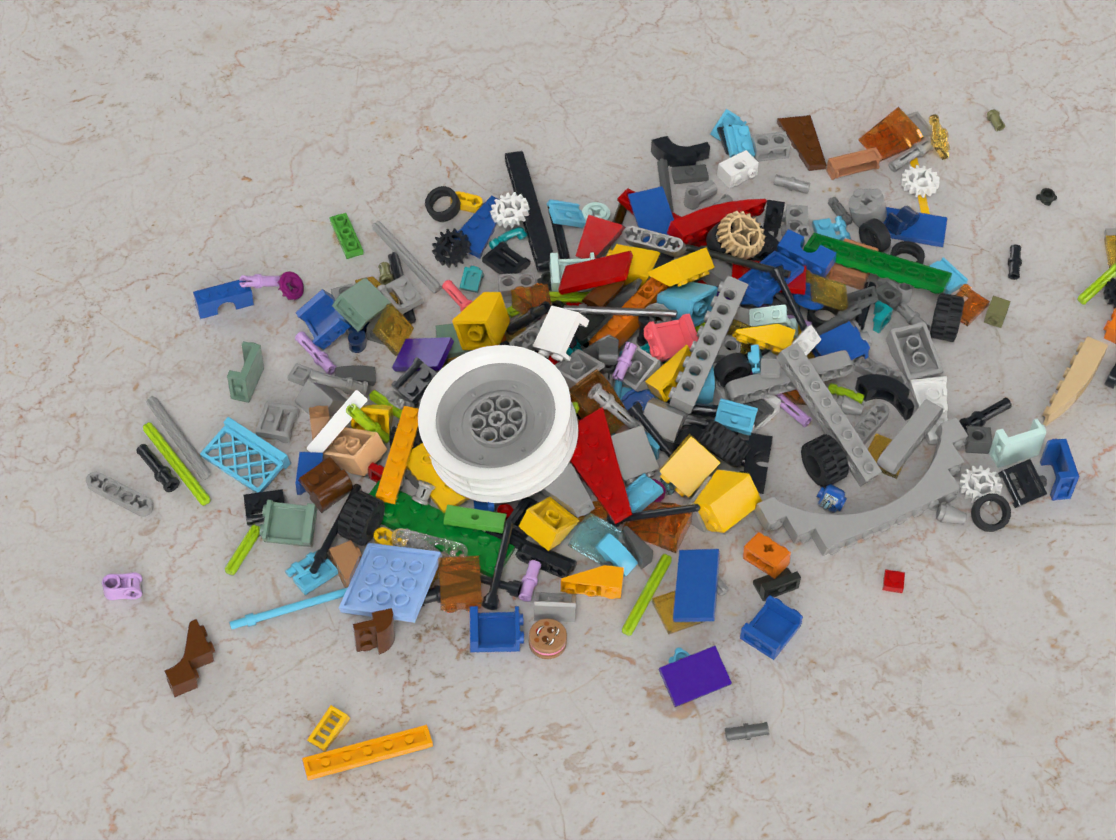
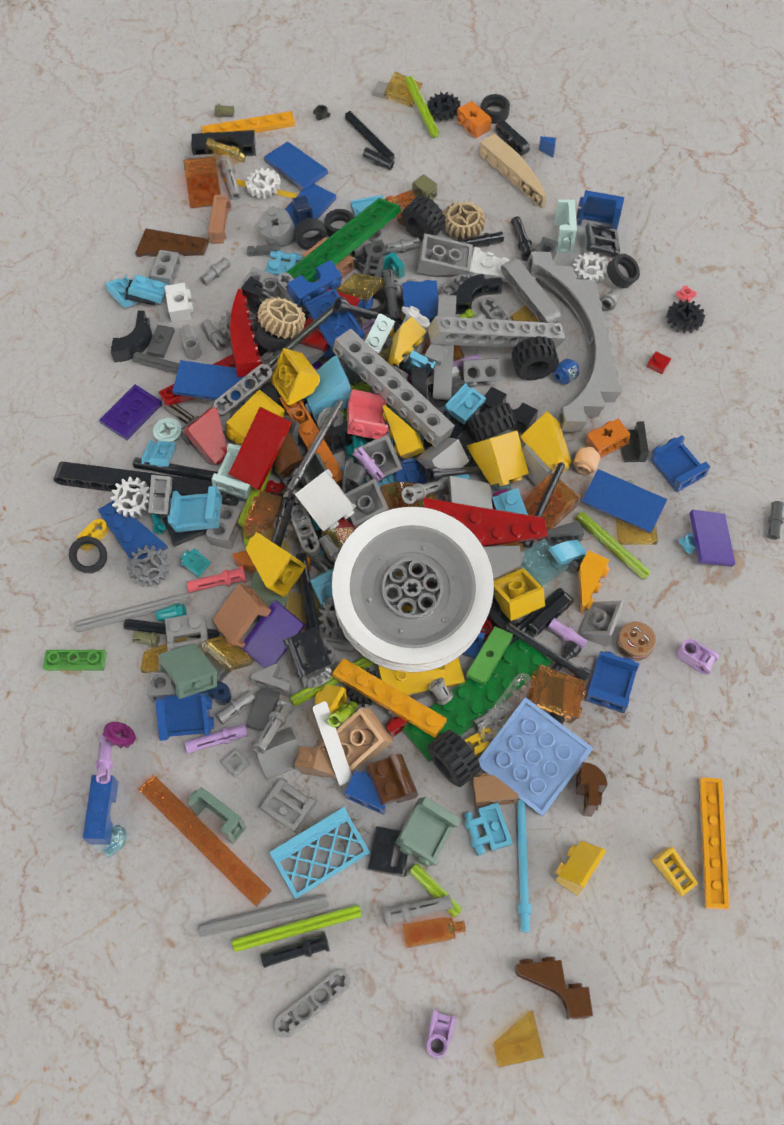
camera: 65 degrees left, 10 degrees up
(135, 648) = (519, 1043): none -> clear yellow wing
(203, 321) = (118, 840): none -> clear light blue arm
(206, 556) = (432, 931): none -> clear orange hinge
(215, 532) = (408, 912): none -> light grey pin
(219, 387) = (205, 841): none -> clear orange plate
(300, 648) = (580, 866): none -> yellow slope
(321, 554) = (479, 811): black bar -> none
(348, 355) = (235, 707): none -> light grey pin
(385, 369) = (268, 679): none -> light grey slope
(417, 281) = (171, 611): none -> teal cone
(437, 319) = (239, 613): none -> nougat panel
(517, 225) = (160, 495): none -> light grey brick
(517, 256) = (195, 511): none -> medium azure panel
(554, 696) = (698, 656): none -> lavender piece
(602, 181) = (130, 412): none -> dark purple tile
(730, 543) = (586, 460): none -> light nougat head
(792, 422) = (480, 366): none -> light grey brick
(960, 199) = (296, 165): none -> blue tile
(962, 147) = (242, 139): none -> black arch
(963, 383) = (485, 239): none -> black pin
(966, 589) = (685, 316): none -> black gear
(976, 353) = (464, 220): none -> tan gear
(990, 146) = (258, 124): none -> light orange plate
(997, 587) = (686, 293): none -> coral plate
(1041, 246) = (369, 135): none -> black axle

